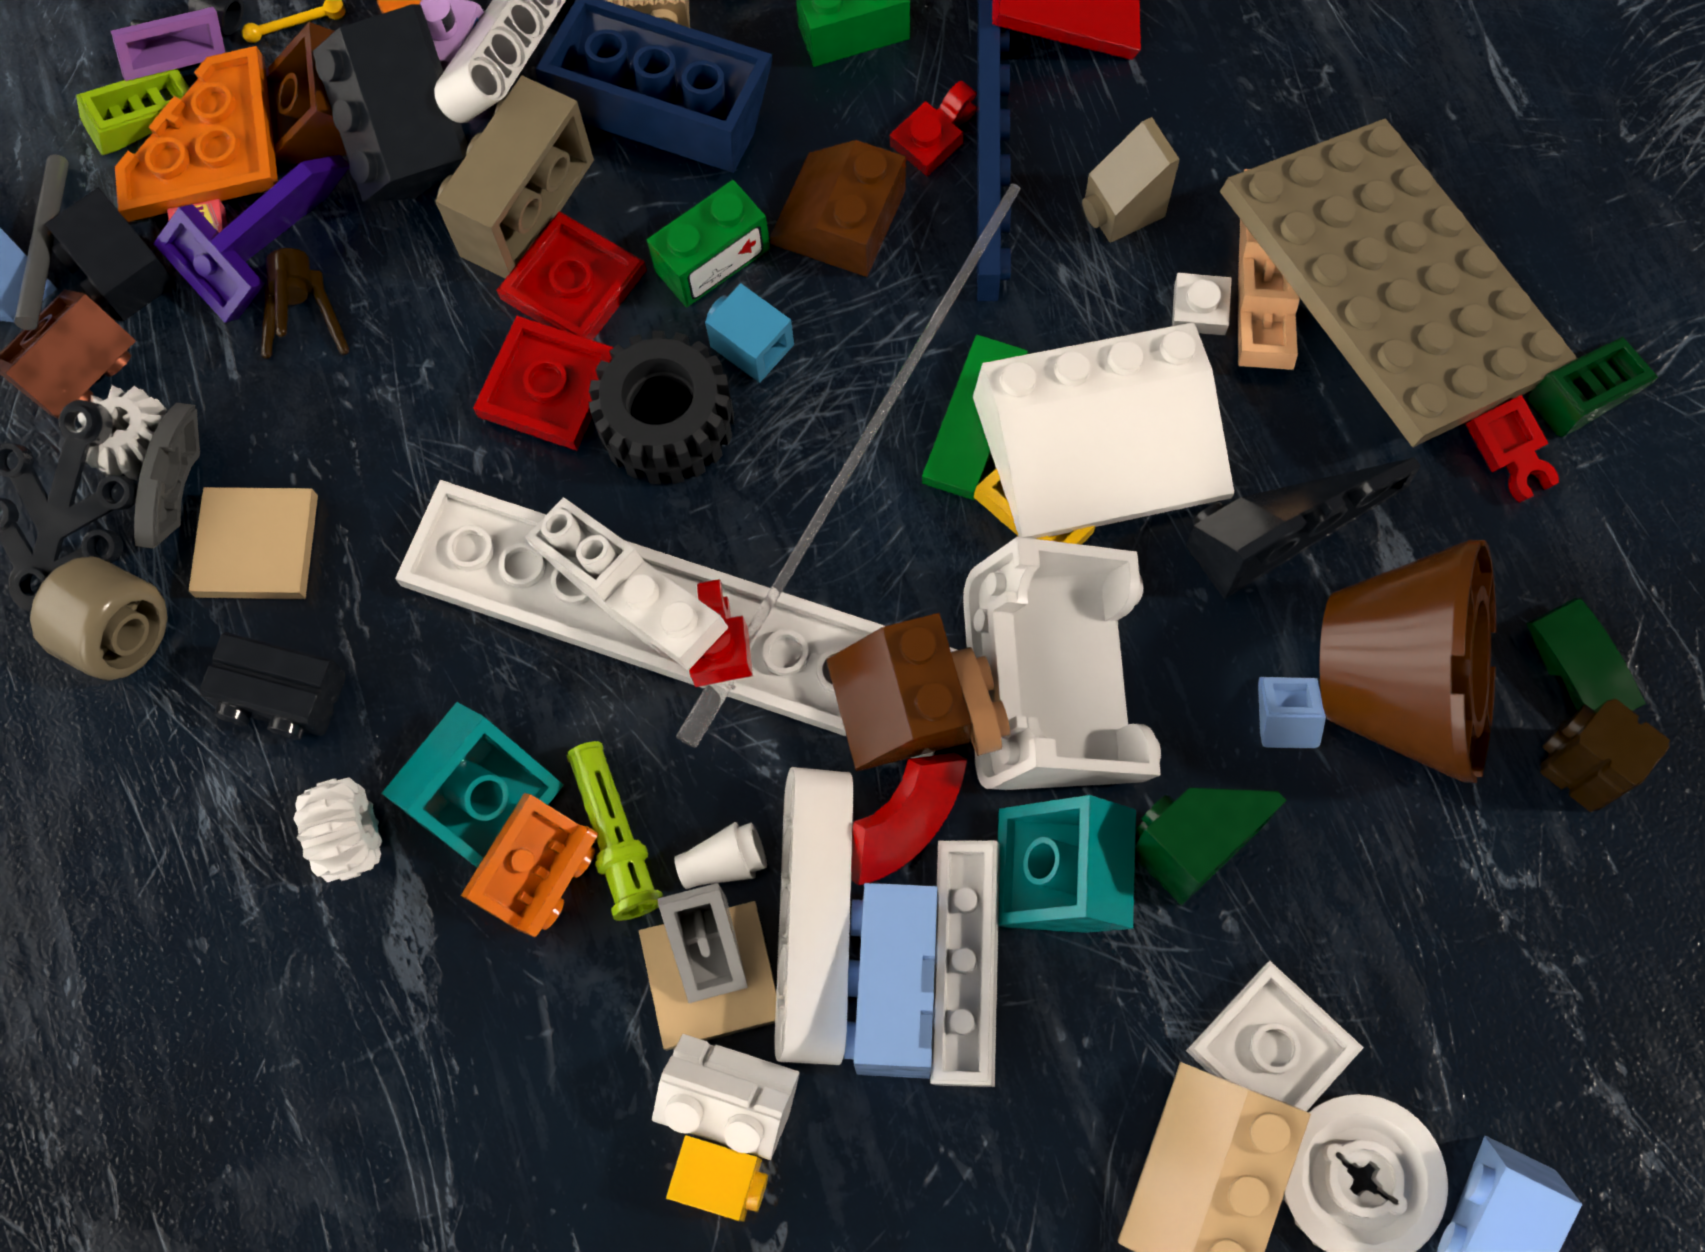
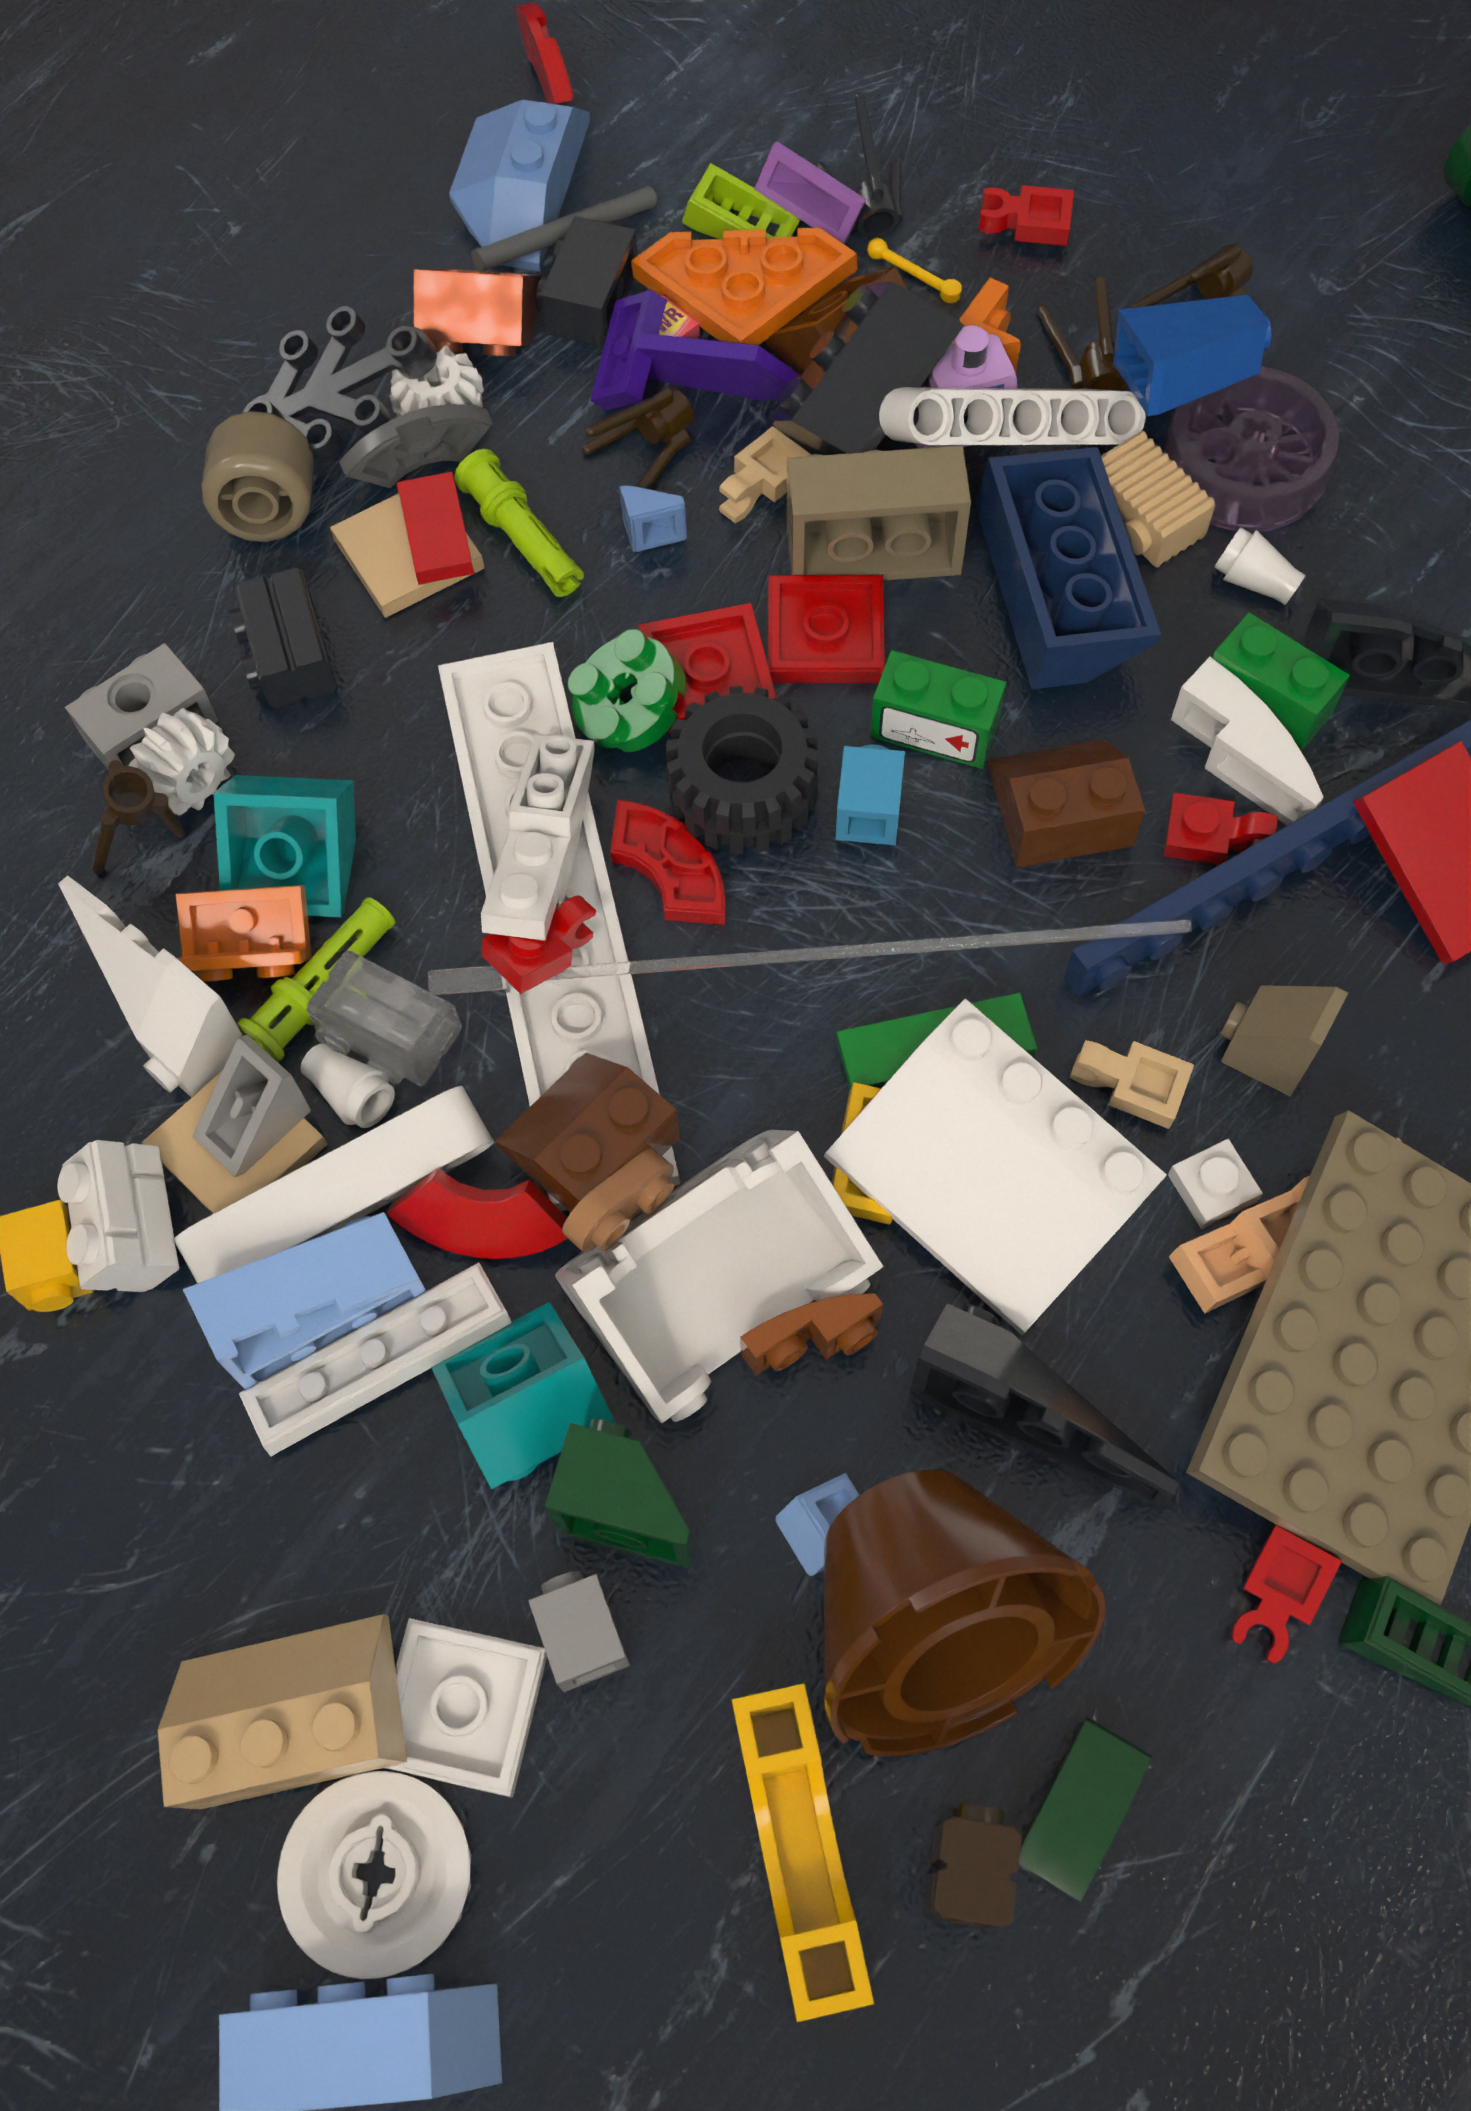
camera: 55 degrees right, 5 degrees down
(261, 507) = (435, 528): none -> red tile
(277, 866) = (117, 710): none -> light grey brick
(278, 443) = (506, 506): none -> lime pin
(358, 887) = (129, 801): none -> dark brown plant
(377, 342) = (652, 517): none -> medium blue slope
(398, 231) = (759, 470): none -> tan plate
(553, 430) = (607, 673): none -> plate
(571, 961) = (165, 1003): none -> white wedge
(686, 798) = (383, 1019): none -> clear brick
(693, 508) = (672, 860): none -> red tile
(889, 62) = (1246, 743): none -> white slope
(1096, 297) = (1143, 1081): none -> tan plate
(1151, 623) = (831, 1324): none -> dark orange slope
(1273, 927) = (578, 1630): none -> light grey brick
(1570, 882) = (801, 1853): none -> yellow arch

